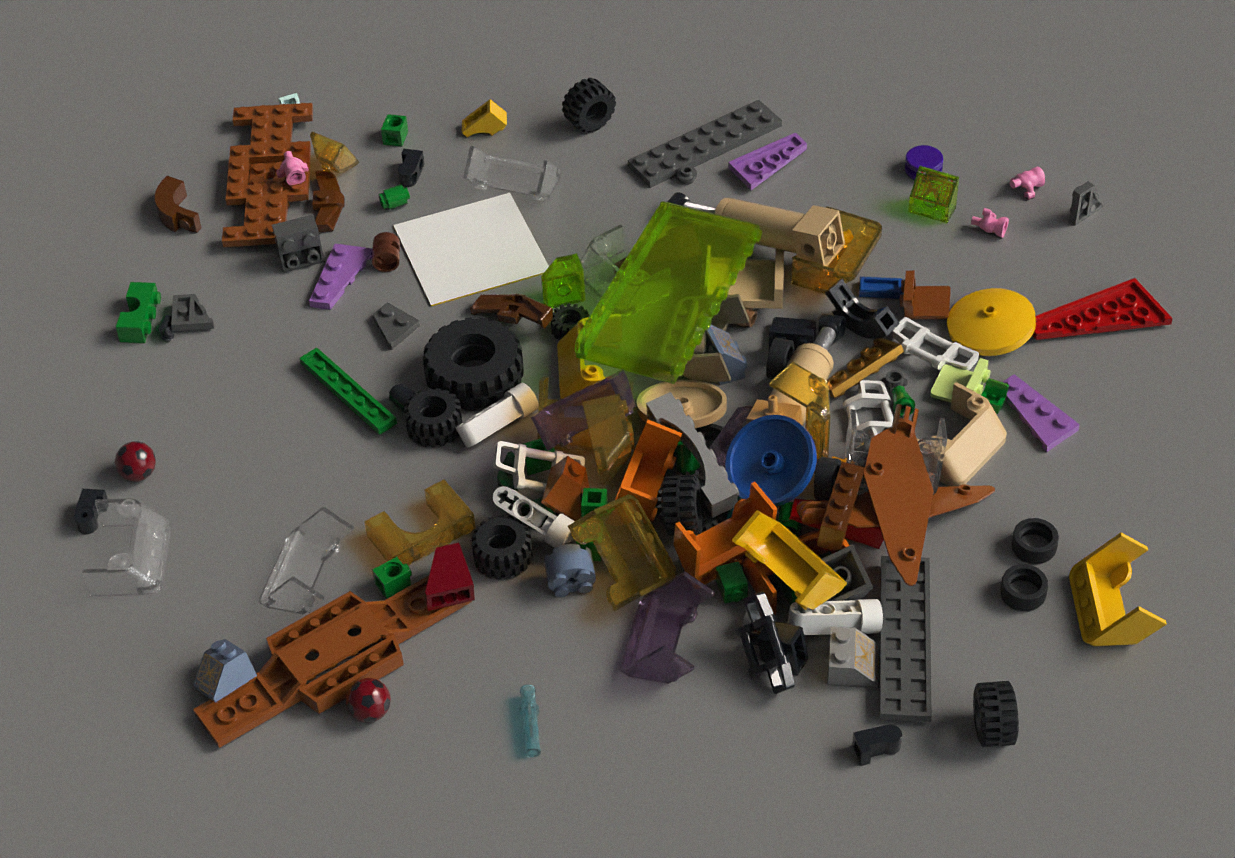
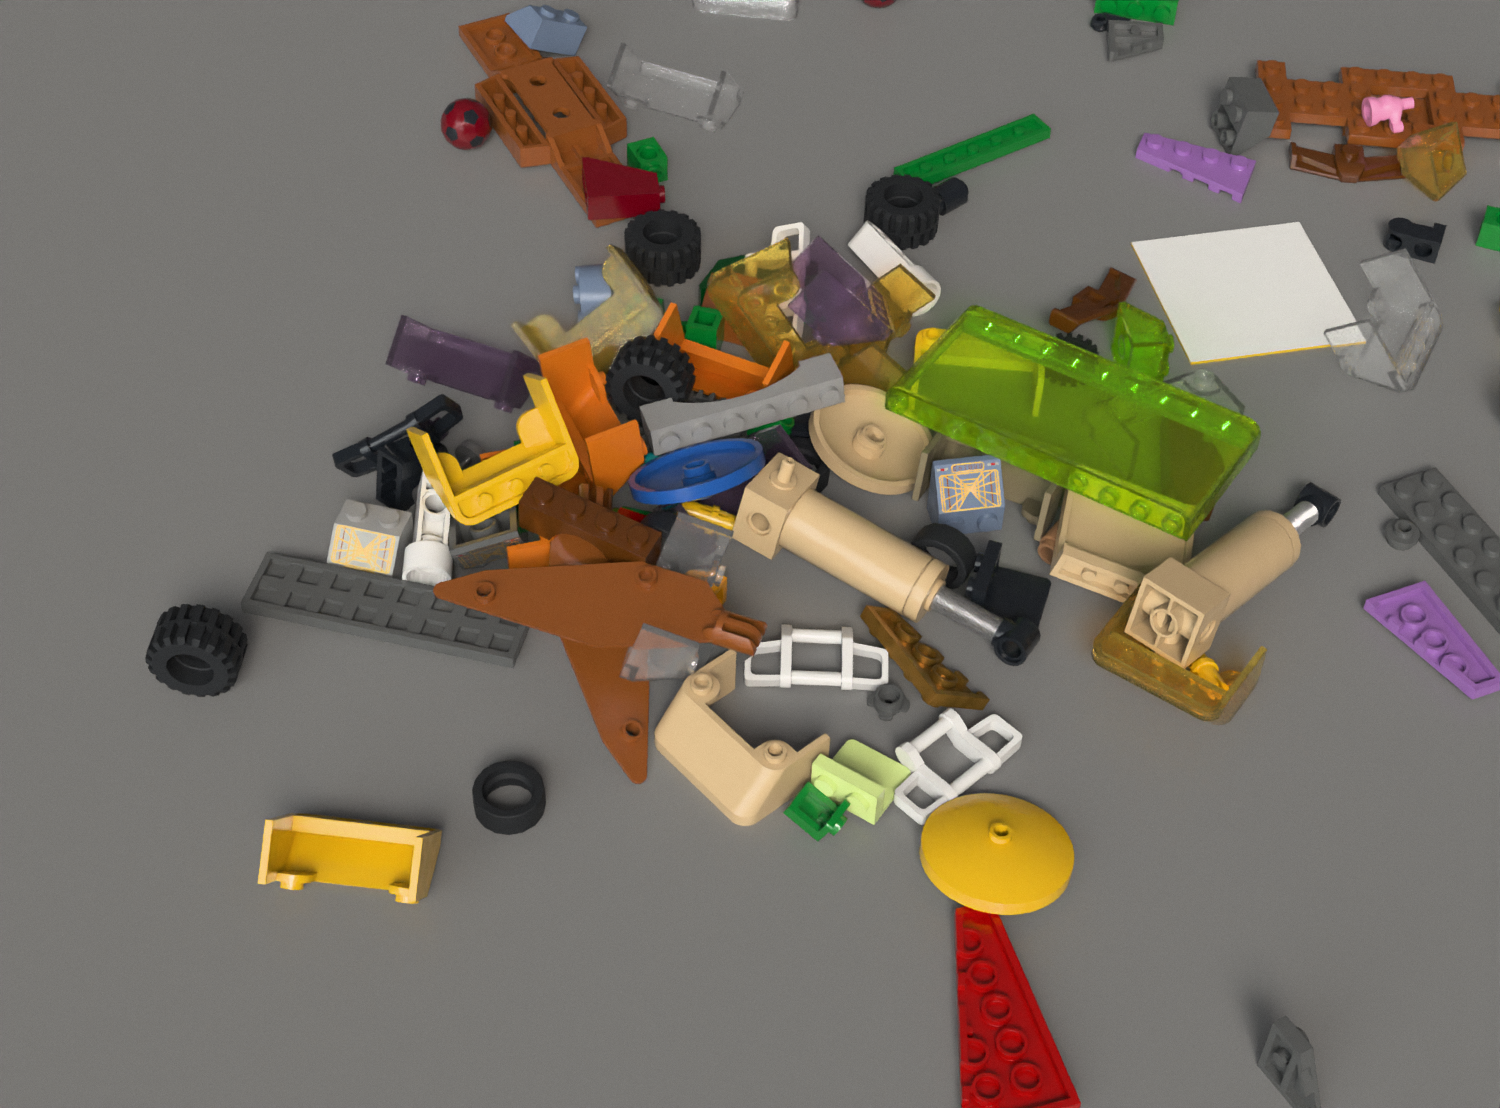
camera: 95 degrees right, 0 degrees up
(167, 199) = (1338, 26): reddish brown arch -> none
(386, 252) = (1218, 195): copper wheel -> none
(394, 197) = (1348, 218): green brick -> none
(394, 324) = (1094, 204): dark grey wing -> none
(454, 521) = (722, 216): clear yellow arch -> none
(469, 341) = (975, 222): black tyre -> none
(532, 744) = (405, 251): clear light blue pin -> none
(554, 528) = (695, 263): white beam -> none
(814, 395) = (761, 513): clear yellow windscreen -> none
(859, 318) = (1034, 679): black arch -> none
(876, 742) = (228, 543): black leg -> none
(880, 287) = (1110, 732): blue tile -> none
(901, 397) = (838, 698): green cone -> none
(923, 156) = (1427, 852): dark purple head -> none
(924, 301) = (1063, 767): dark orange bracket -> none
(934, 194) = (1317, 833): clear neon green slope -> none
(990, 223) = (1252, 918): bright pink piece -> none
(1027, 573) = (422, 739): black tyre -> none
(1029, 180) = (1373, 1000): bright pink piece -> none
(1043, 418) = (776, 878): medium lavender wing -> none

